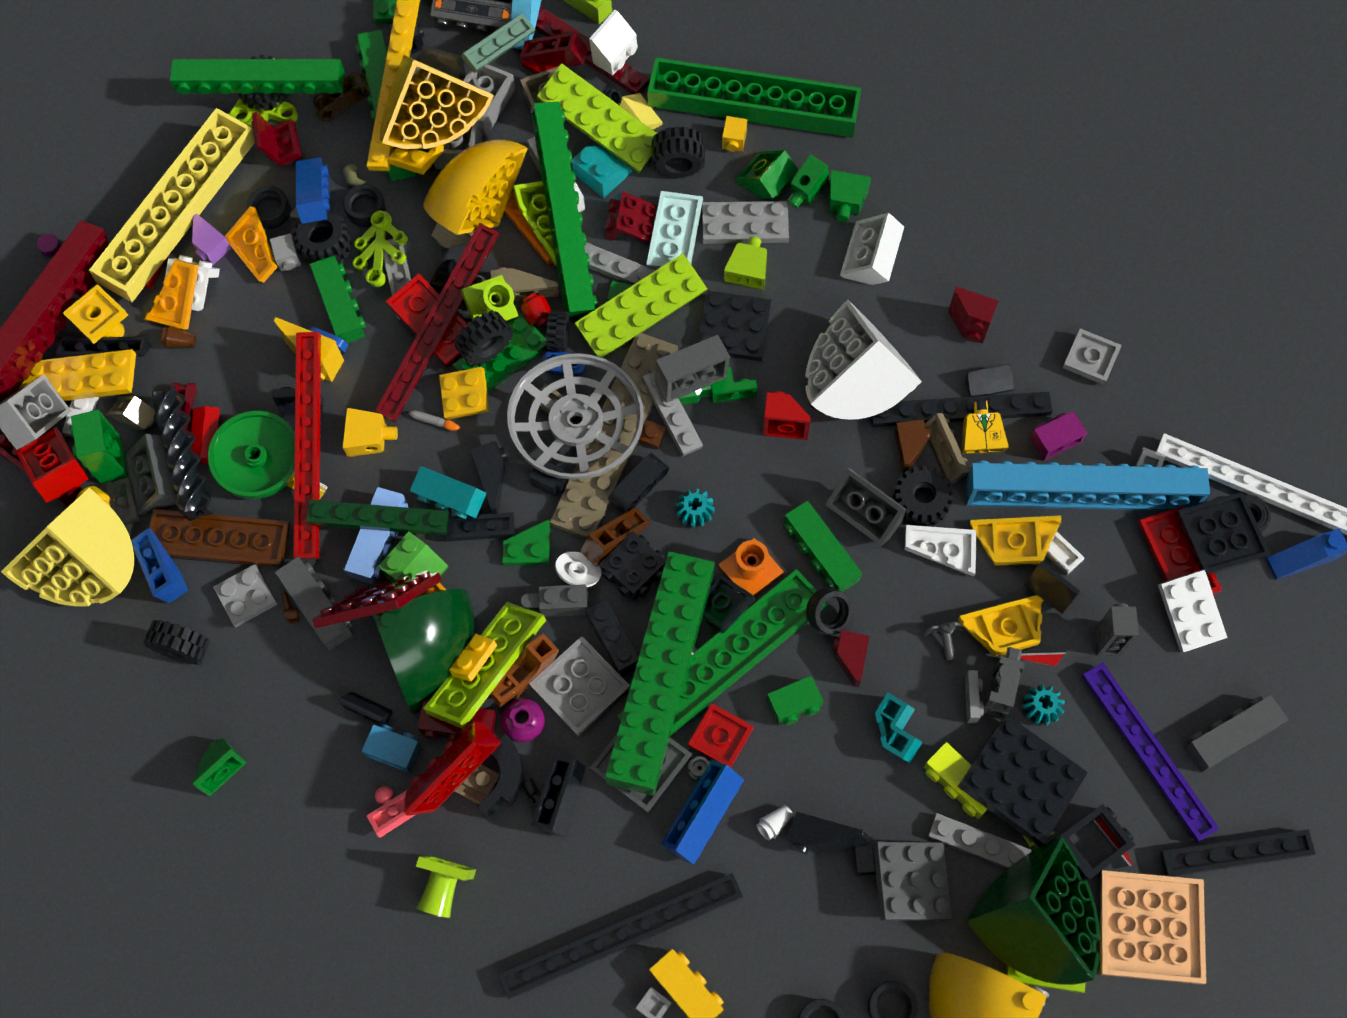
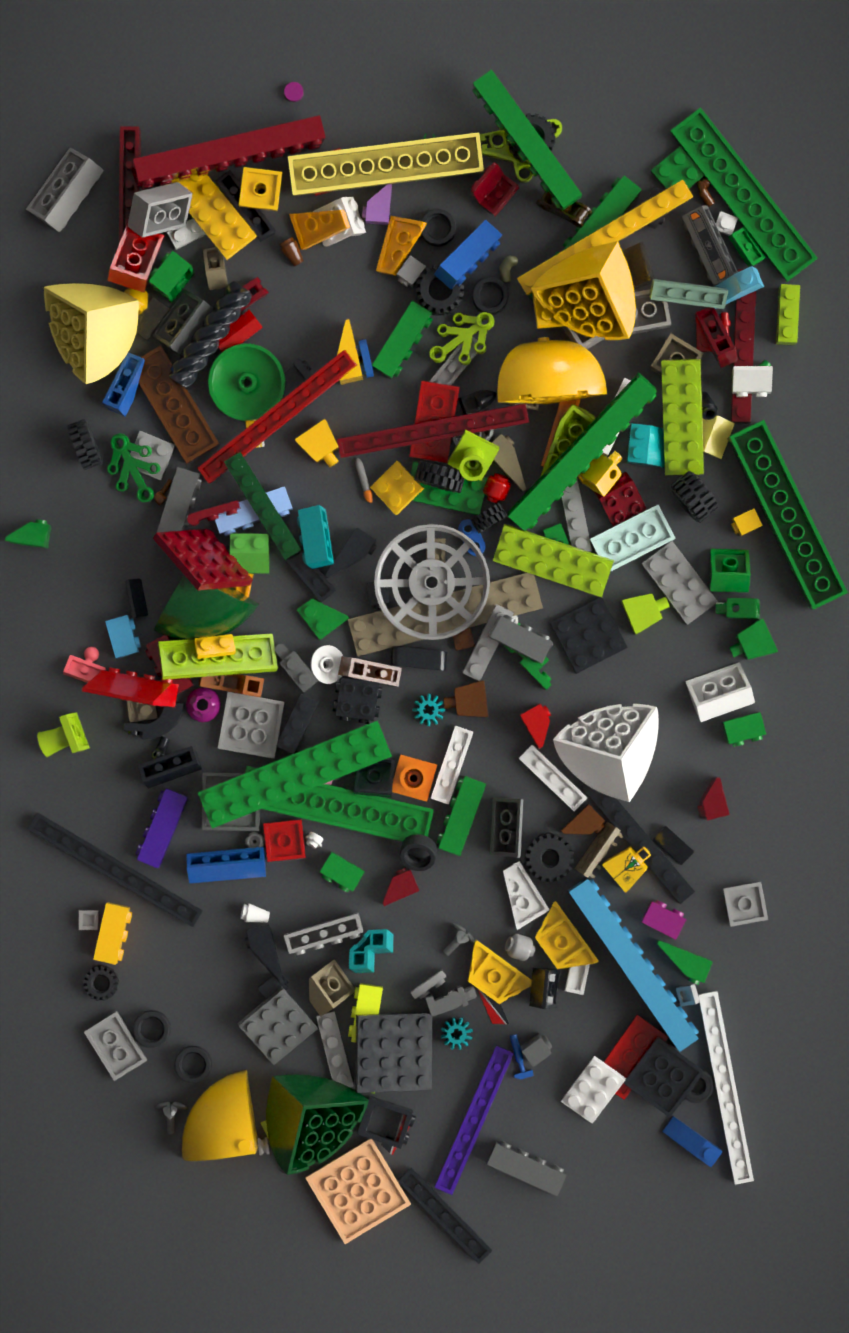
camera: 55 degrees right, 20 degrees up
(236, 616) = (130, 465): none -> green plant
(345, 565) = (212, 513): none -> dark red plate
(597, 214) = (602, 473): none -> yellow torso
(615, 852) = (162, 827): none -> dark purple brick
(715, 465) = (469, 700): none -> reddish brown torso
(742, 706) = (314, 840): none -> white plate
(765, 524) = (452, 765): none -> white plate
(846, 442) = (553, 778): none -> white plate
(846, 761) = (322, 933): none -> light grey brick
(909, 800) = (329, 988): none -> dark tan slope
(921, 251) = (744, 728): none -> green brick
(994, 583) = (519, 947): none -> light grey head
(1110, 663) = (519, 1059): none -> blue piece
(1116, 442) = (689, 963): none -> green slope

